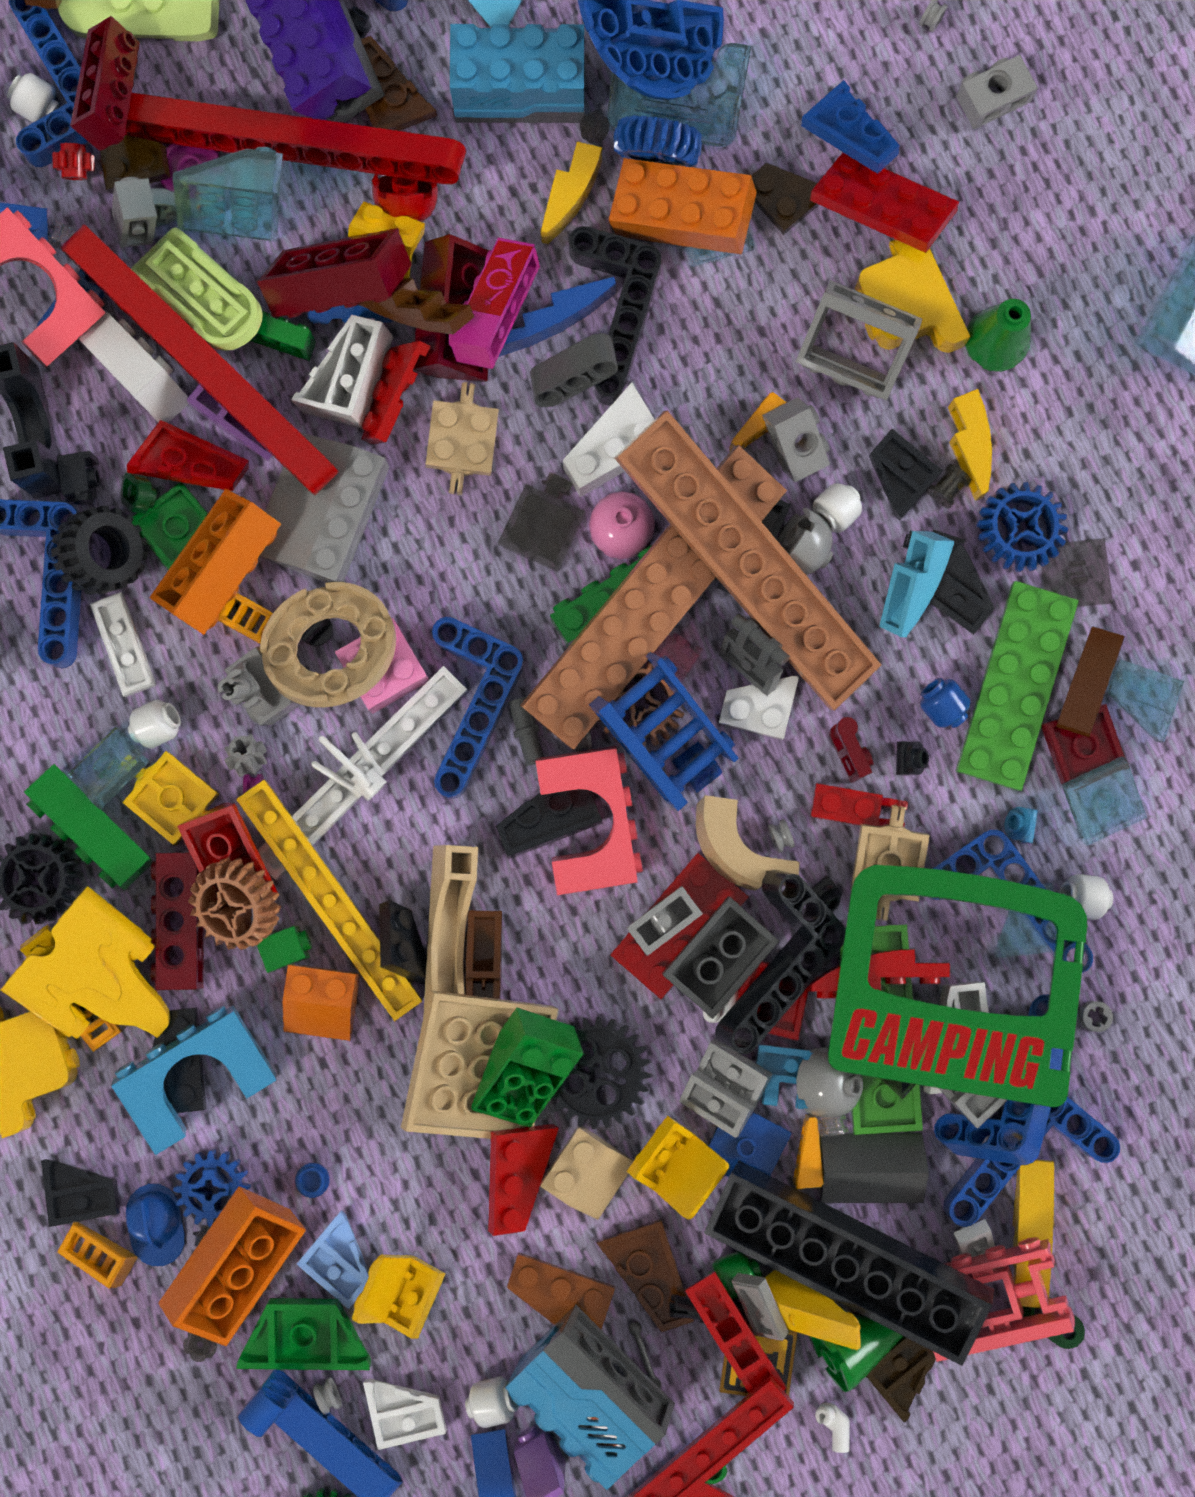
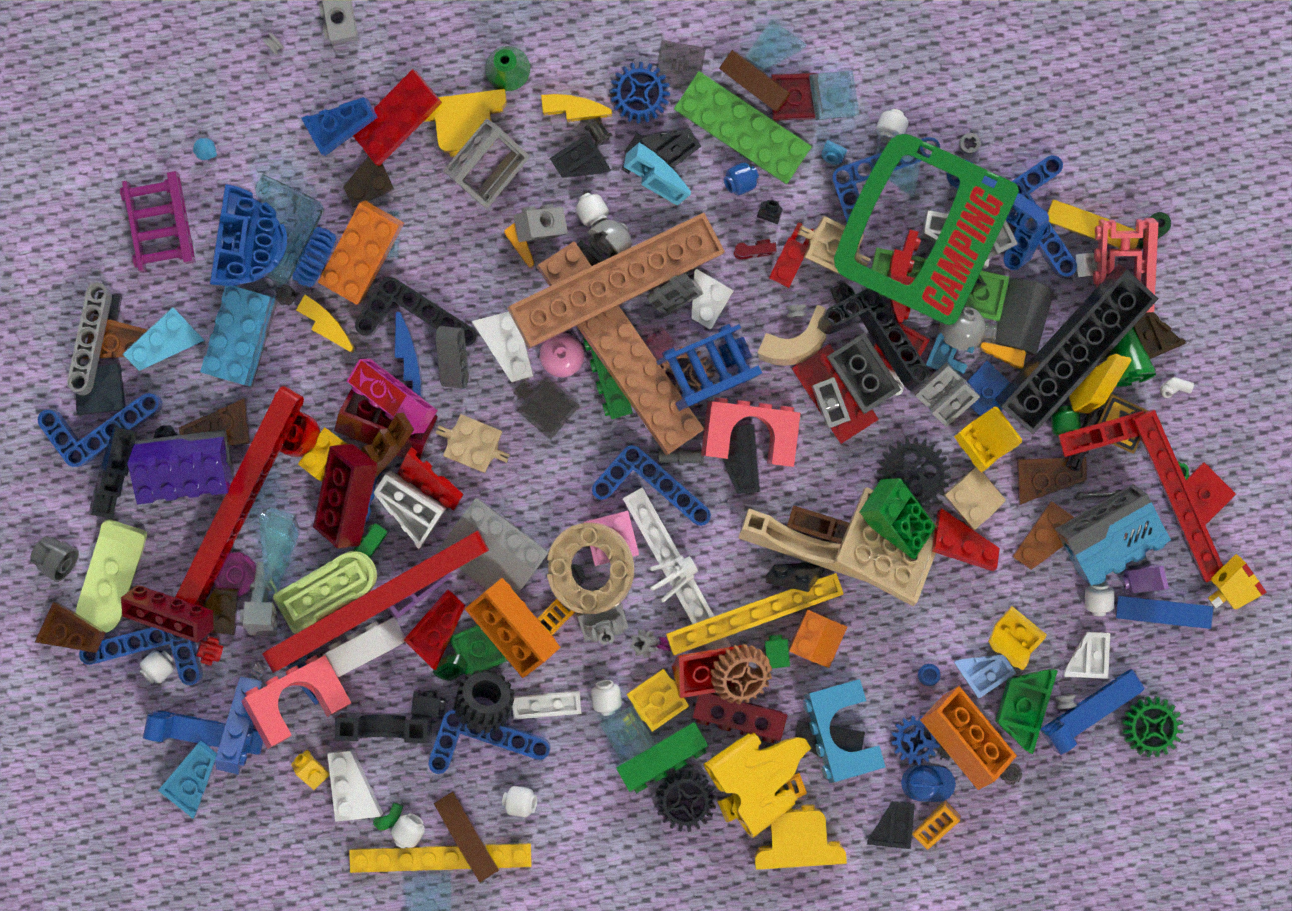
camera: 70 degrees left, 5 degrees up
(760, 1306) = (1088, 412): light grey tile -> none

